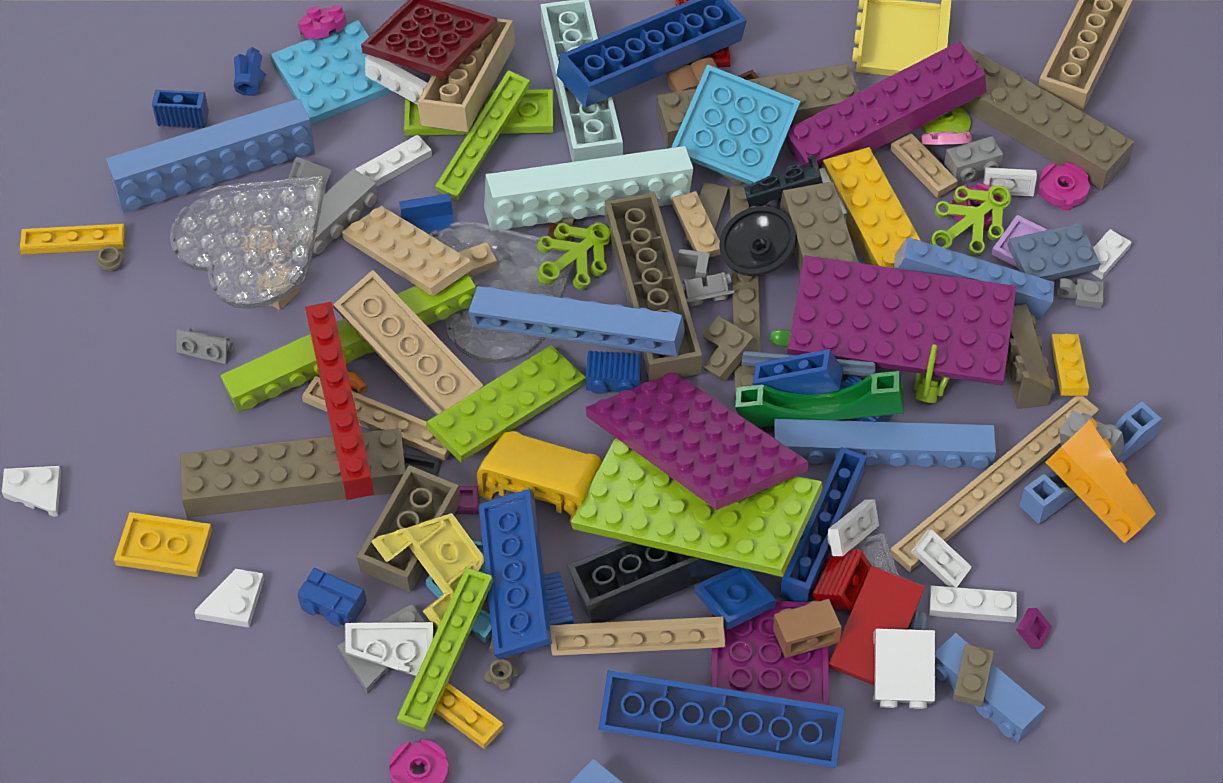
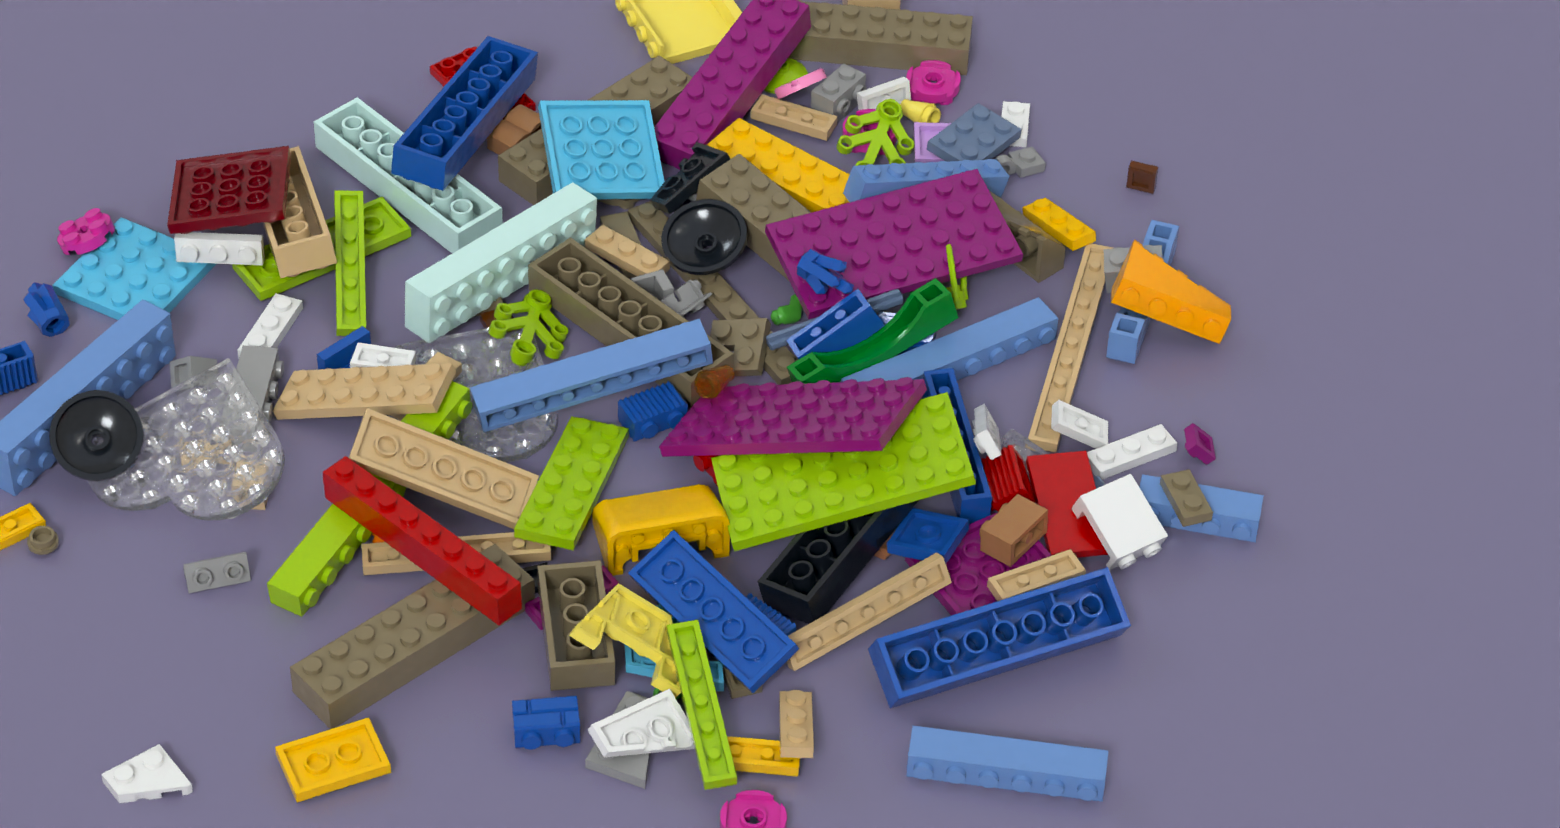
camera: 35 degrees left, 10 degrees down
(174, 192) = (90, 416): none -> black dish
(233, 599) = (445, 774): white wing -> none
(442, 228) = (374, 355): none -> white plate
(501, 666) = (760, 707): dark tan plate -> none
(510, 705) = (796, 724): none -> tan plate
(668, 371) = (712, 381): none -> clear orange cone
(793, 681) = (1036, 575): none -> tan plate
(813, 321) = (821, 271): none -> blue rock
(1031, 208) = (920, 111): none -> light yellow cone
(1175, 355) = (1142, 177): none -> reddish brown tile

